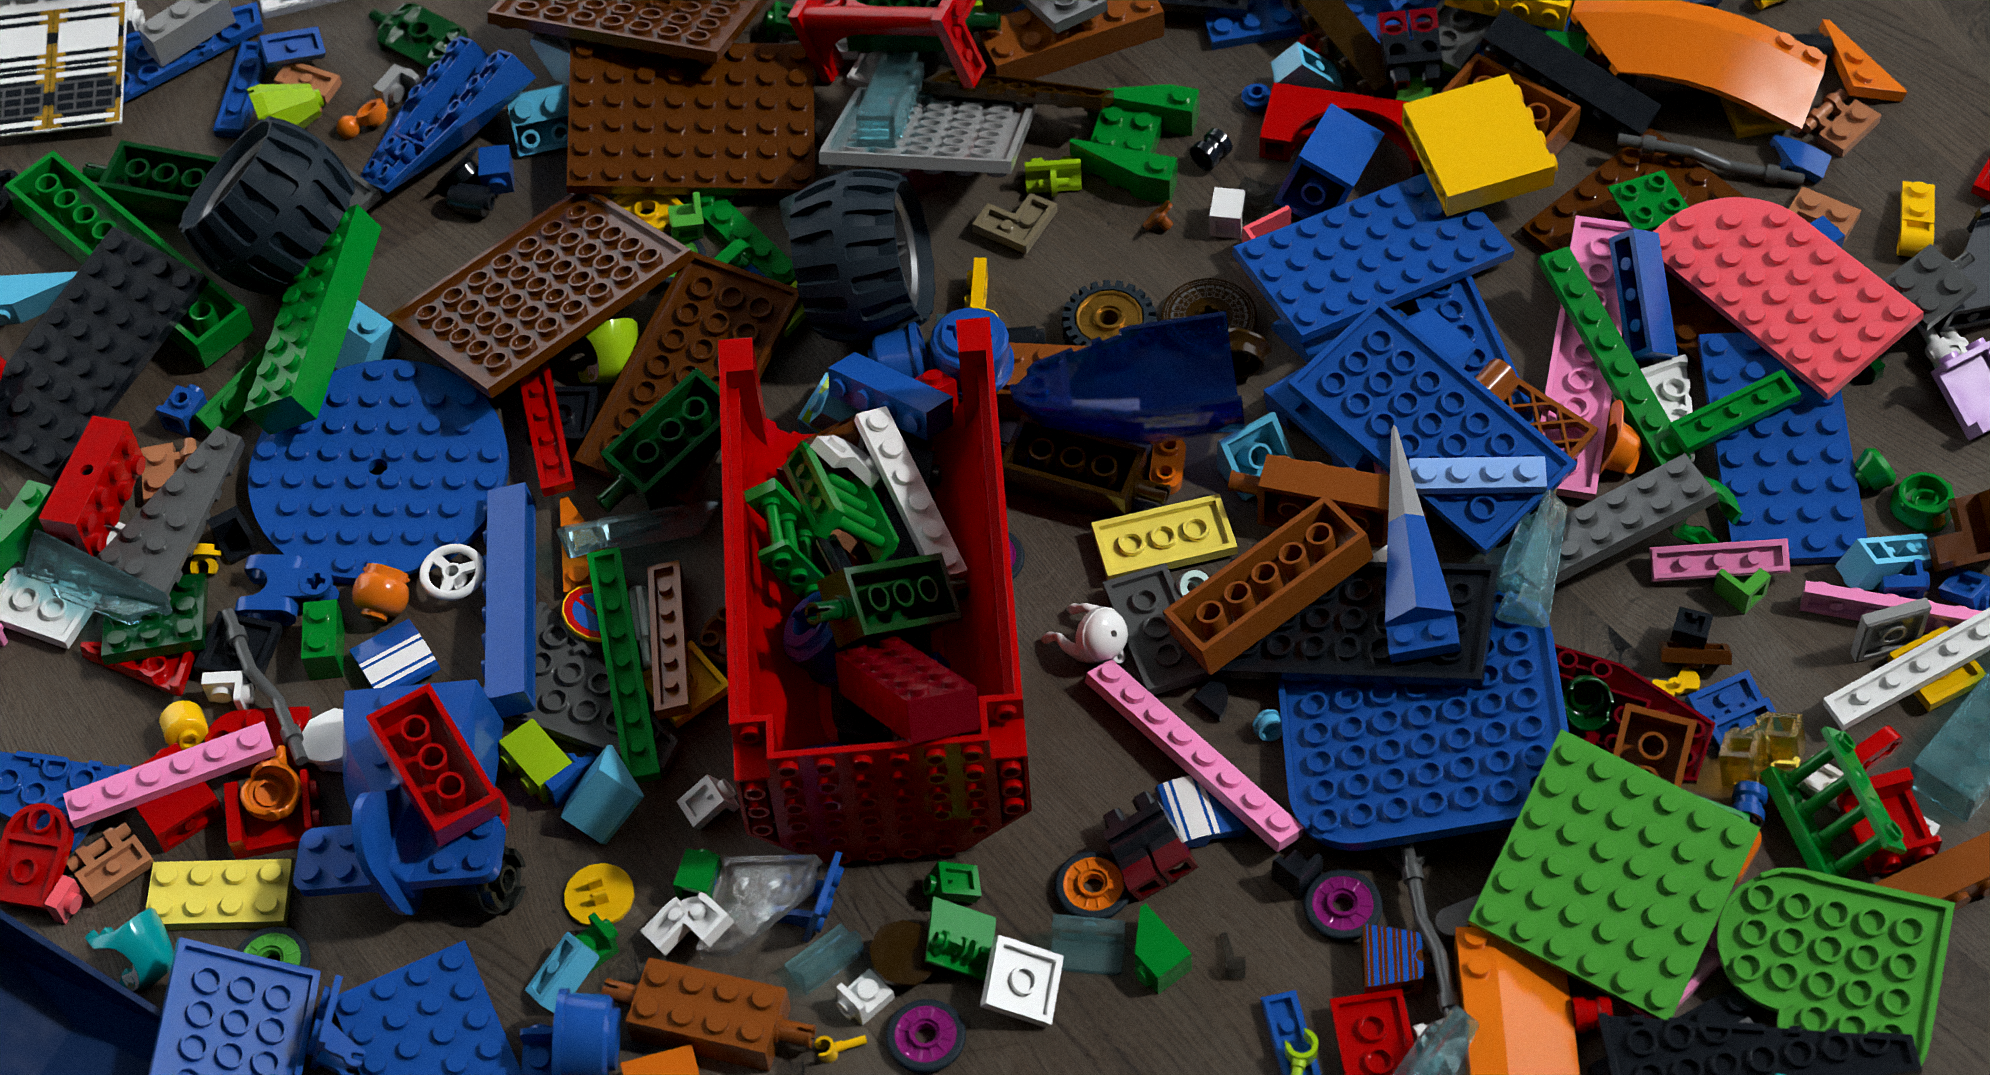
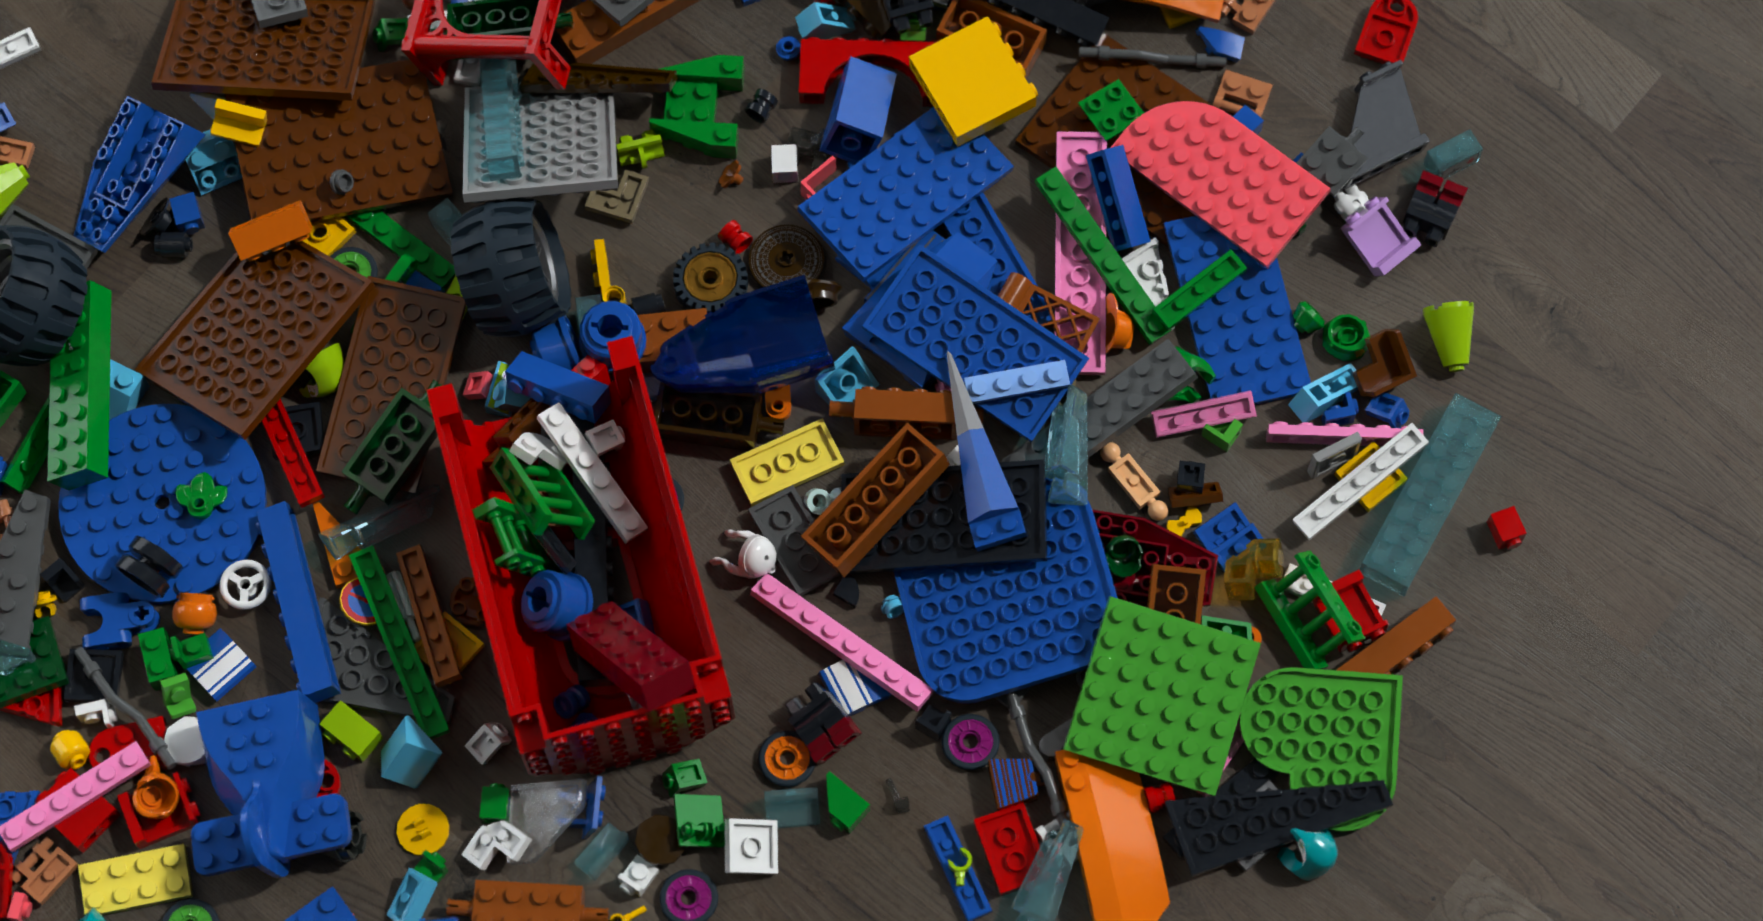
camera: 15 degrees left, 15 degrees up
(332, 681) = (177, 696): none -> bright green bracket
(337, 524) = (151, 564): none -> black wheel
(363, 636) = (191, 650): none -> green bracket
(371, 113) = (68, 175): orange plate -> none
(395, 84) = (80, 145): light grey bracket -> none
(399, 30) = (101, 105): dark green plate -> none
(425, 463) = (201, 492): none -> green plate
(434, 764) = (286, 770): red brick -> none
(563, 782) = (374, 749): blue slope -> none
(578, 67) = (238, 122): none -> yellow panel
(585, 187) = (271, 231): none -> orange brick
(683, 149) = (341, 181): none -> dark grey plate
(687, 220) = (355, 239): bright green panel -> none
(795, 397) = (478, 385): none -> coral plate
(888, 599) = (598, 575): dark green brick -> none
(937, 458) = (606, 438): none -> white bracket
(1147, 278) = (735, 237): none -> red wheel
(1614, 626) = (1134, 481): none -> light nougat plate
(1751, 798) = (1249, 610): blue wheel -> none
(1878, 747) = (1334, 551): red beam -> none
(1916, 218) = (1315, 87): yellow plate -> none

